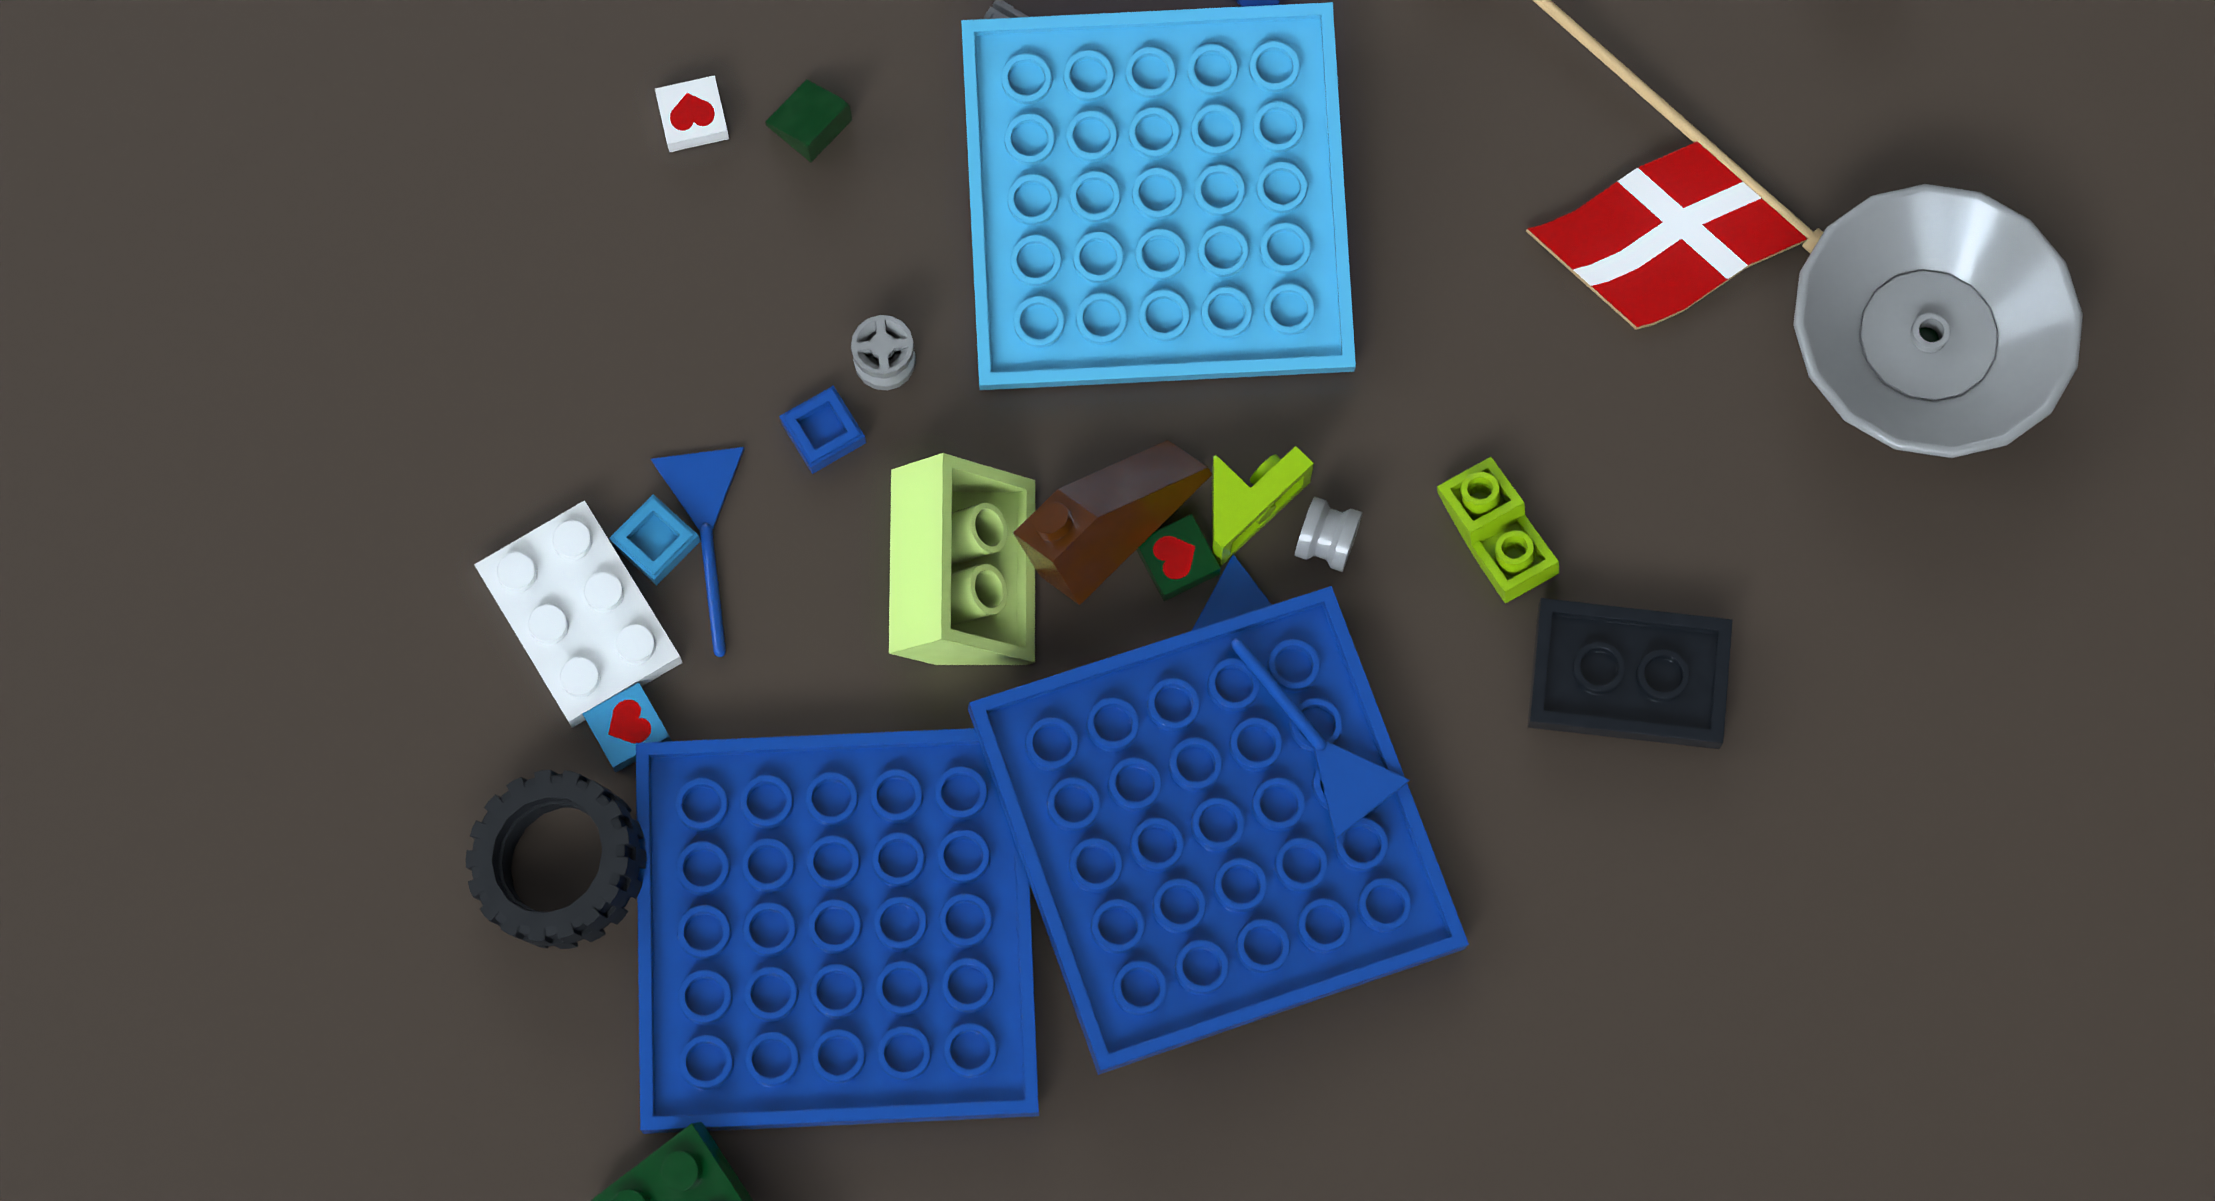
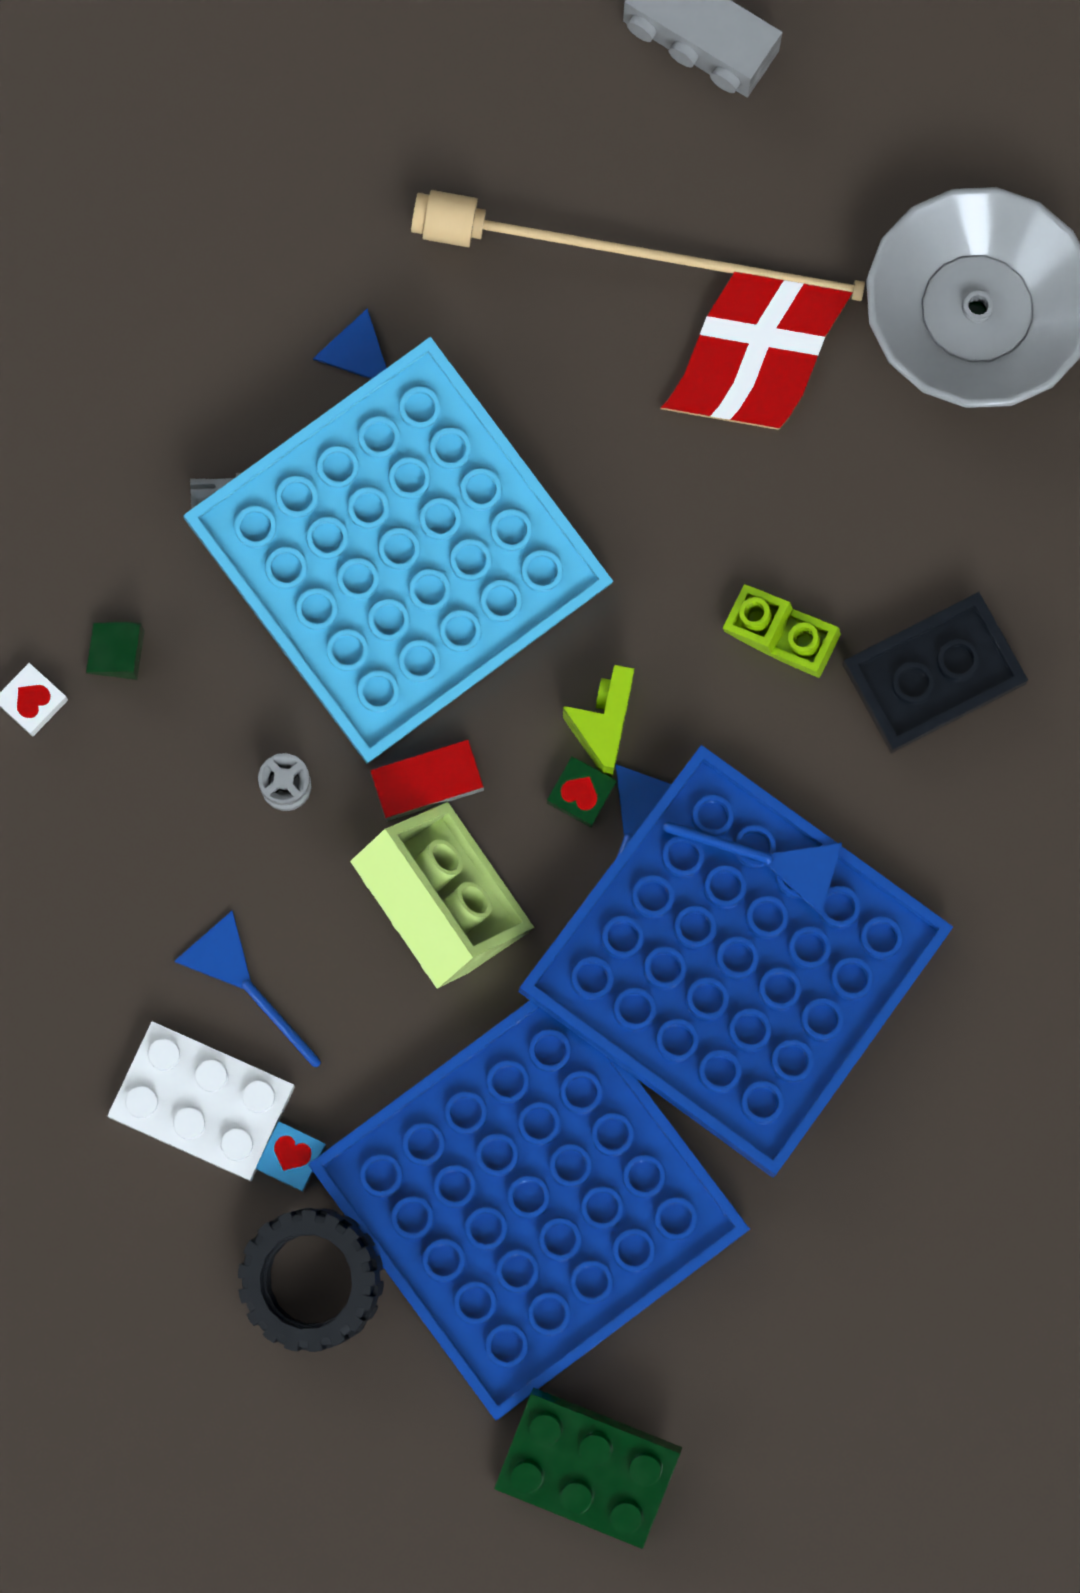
camera: 35 degrees left, 5 degrees up
(654, 540) = (217, 1015): dark azure tile -> none
(822, 429) = (278, 862): blue tile -> none
(1028, 443) = (427, 780): none -> red tile
(1106, 516) = (518, 795): reddish brown slope -> none
(1328, 533) = (673, 709): light grey wheel -> none

